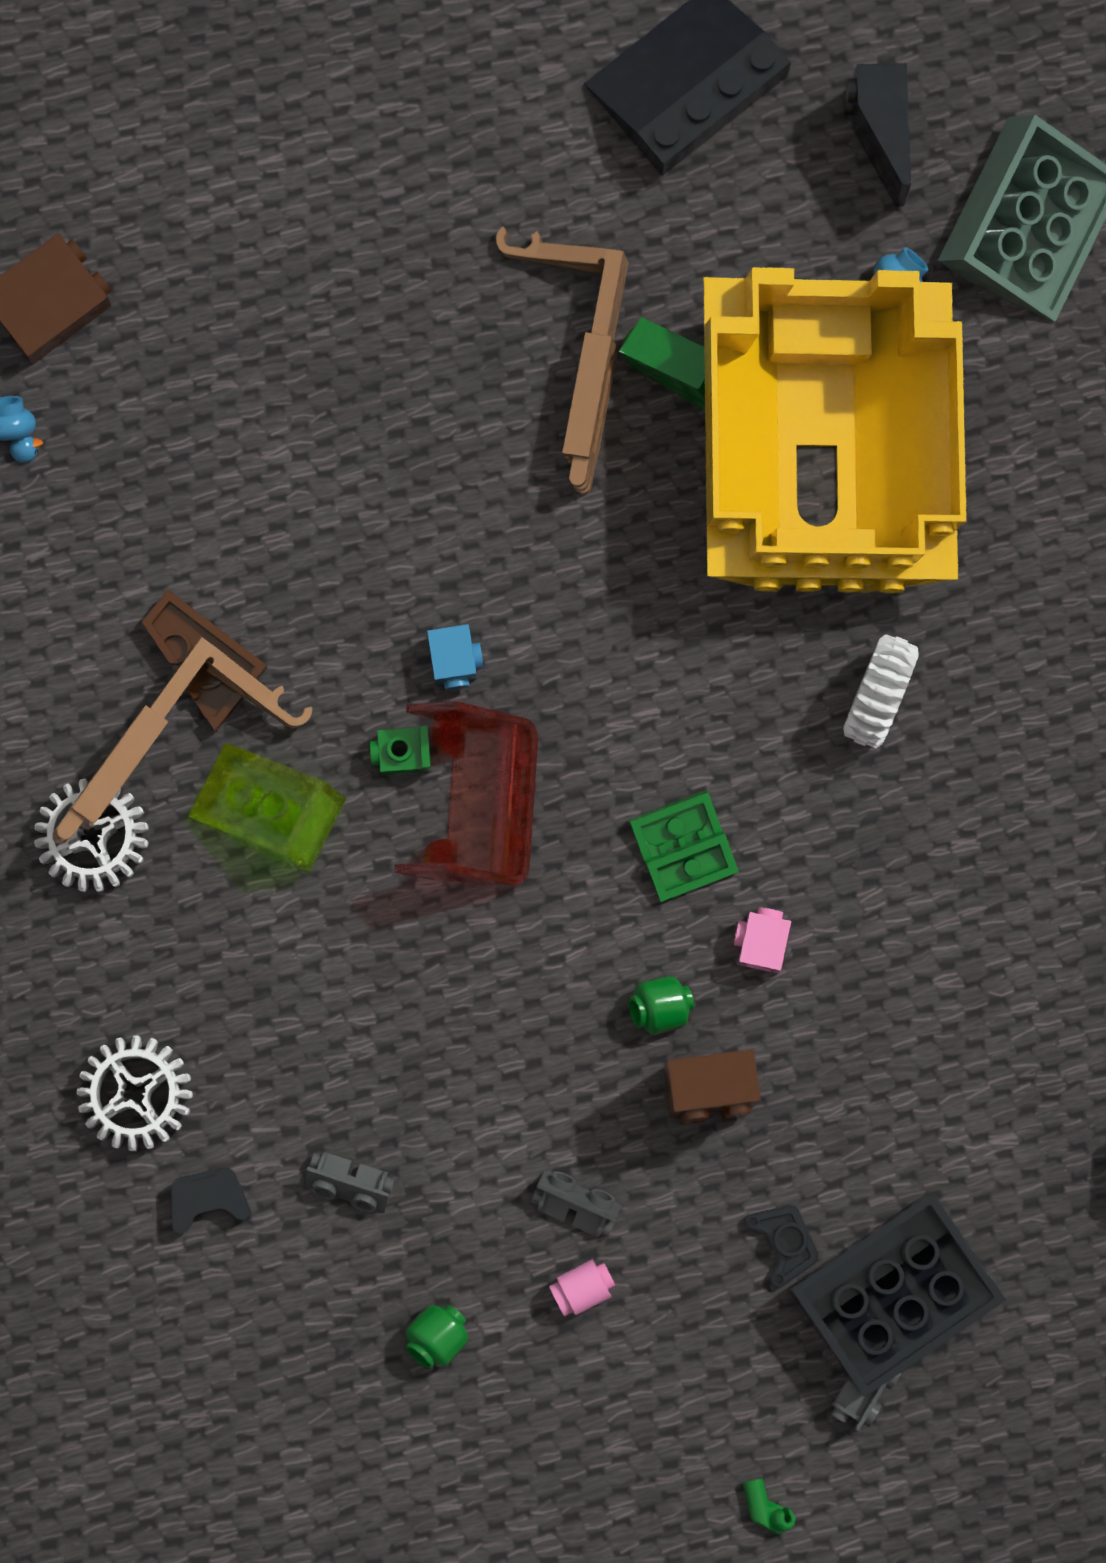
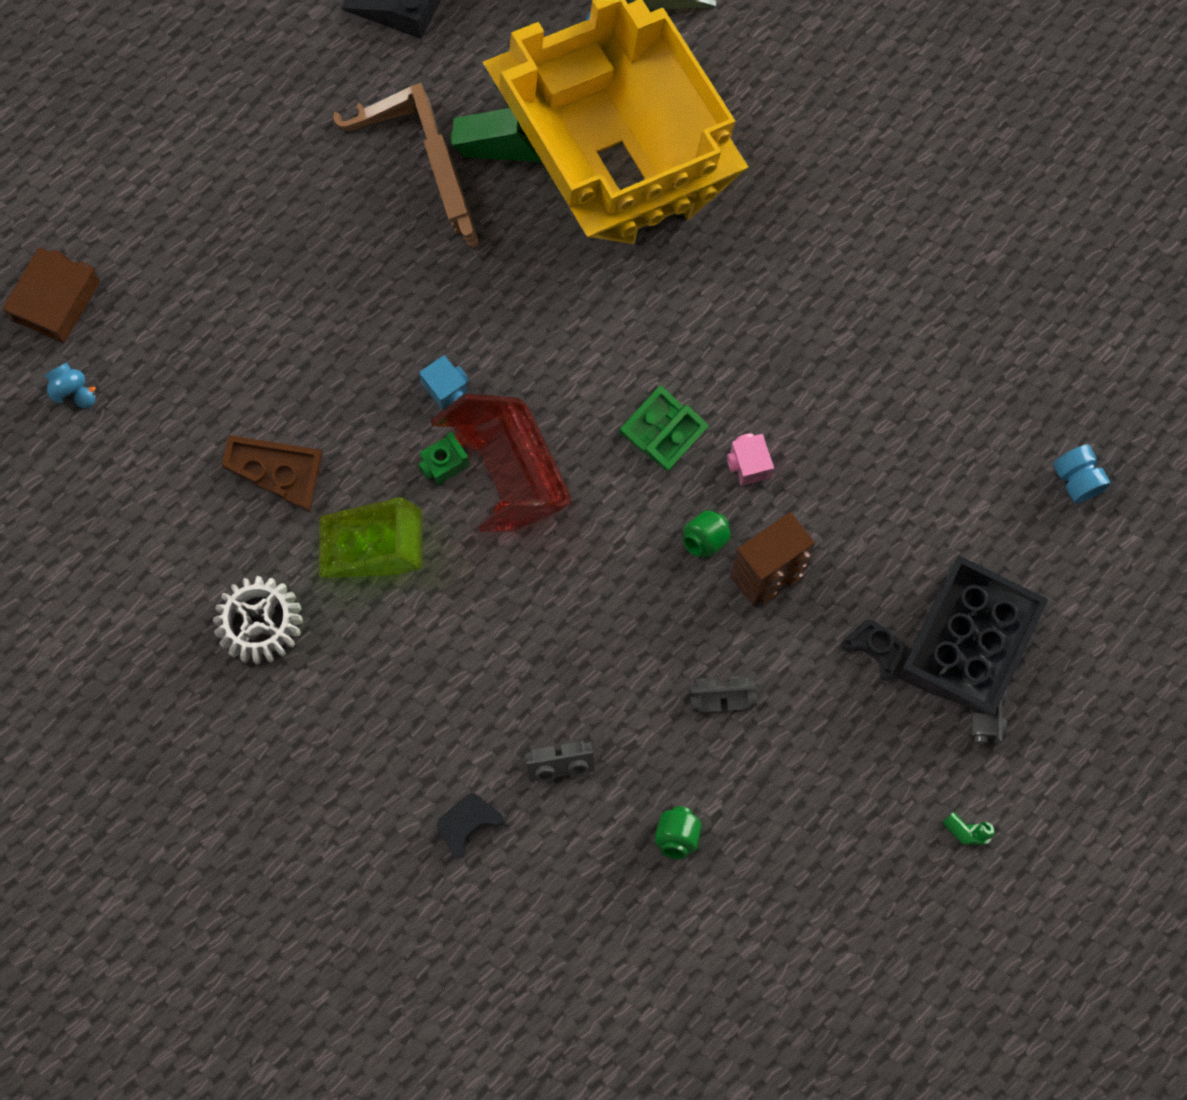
camera: 25 degrees left, 10 degrees down
(114, 1063) = (371, 791): white gear -> none
(151, 722) = (260, 519): medium nougat hinge -> none
(582, 1288) = (759, 747): bright pink brick -> none
(881, 691) = (737, 263): white gear -> none

